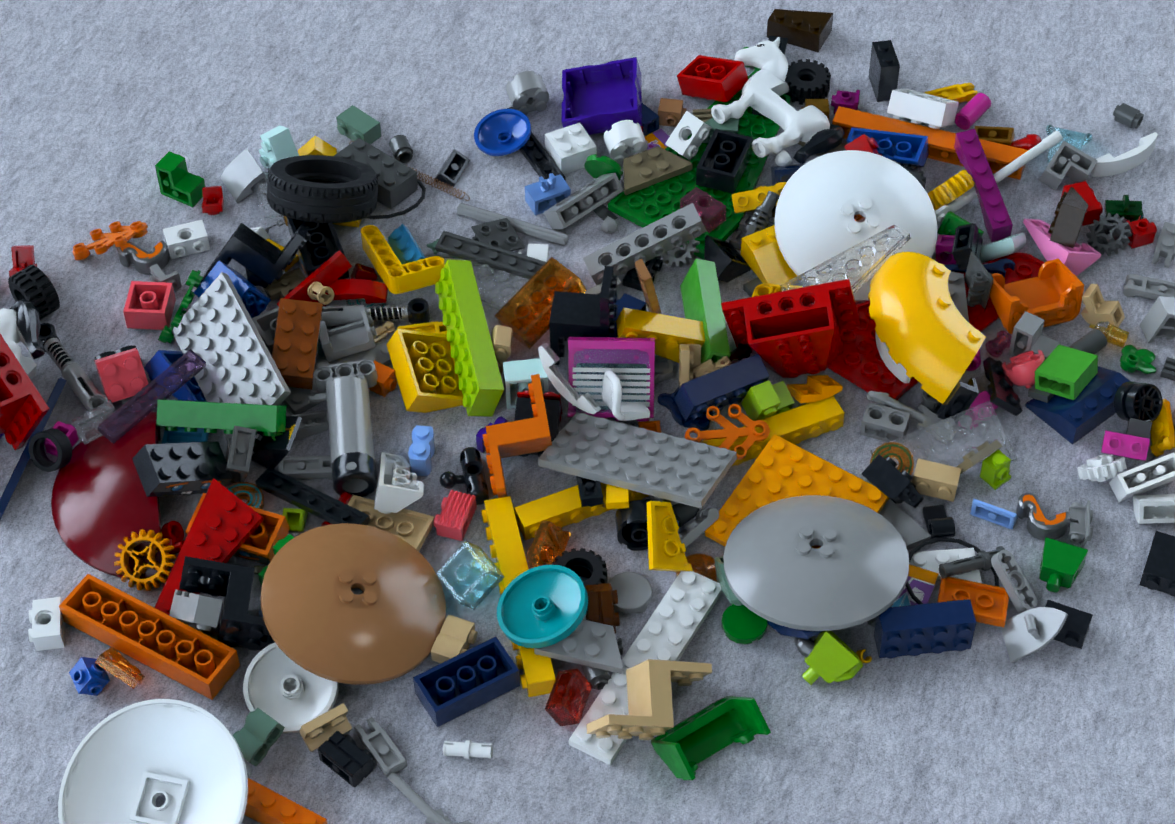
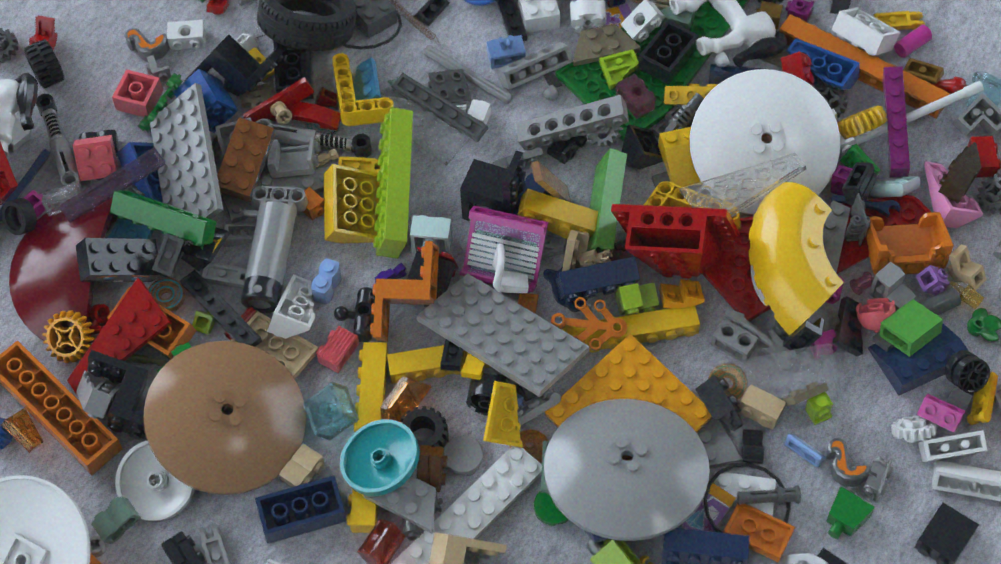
camera: 15 degrees right, 10 degrees up
(135, 230) = (123, 22): orange plant -> none
(321, 728) = (171, 525): tan bracket -> none
(502, 342) = (418, 197): tan brick -> none
(531, 306) = (452, 164): clear orange brick -> none
(548, 359) = (459, 247): white slope -> none
(598, 166) = (560, 35): green tile -> none
(674, 185) = (618, 66): none -> lime wing
(1015, 571) = (790, 509): light grey beam -> none
(1071, 325) = (933, 280): none -> medium lavender brick

